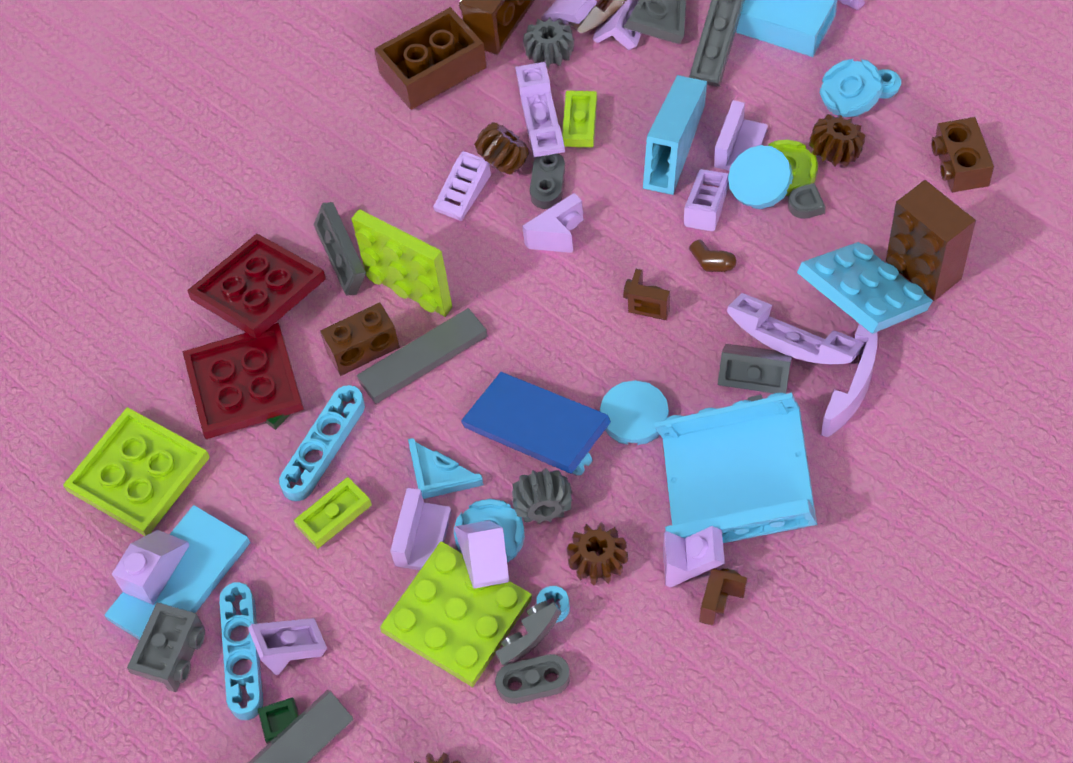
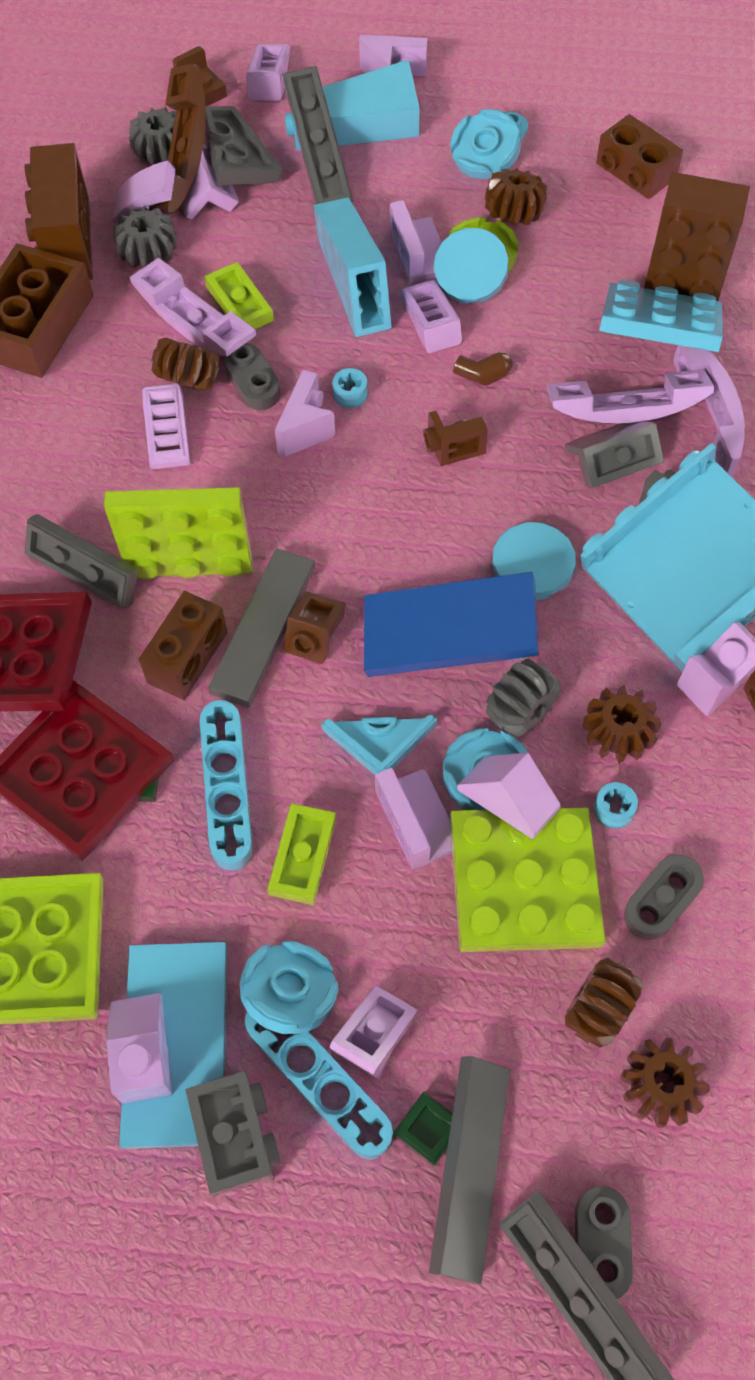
camera: 40 degrees left, 5 degrees up
(261, 585) = (288, 987): none -> medium azure tile
(434, 712) = (603, 1002): none -> reddish brown gear
(451, 371) = (312, 626): none -> reddish brown bracket
(538, 624) = (634, 836): dark grey slope -> none
(607, 215) = (341, 383): none -> medium azure bush
(806, 202) = (528, 271): dark grey tile -> none

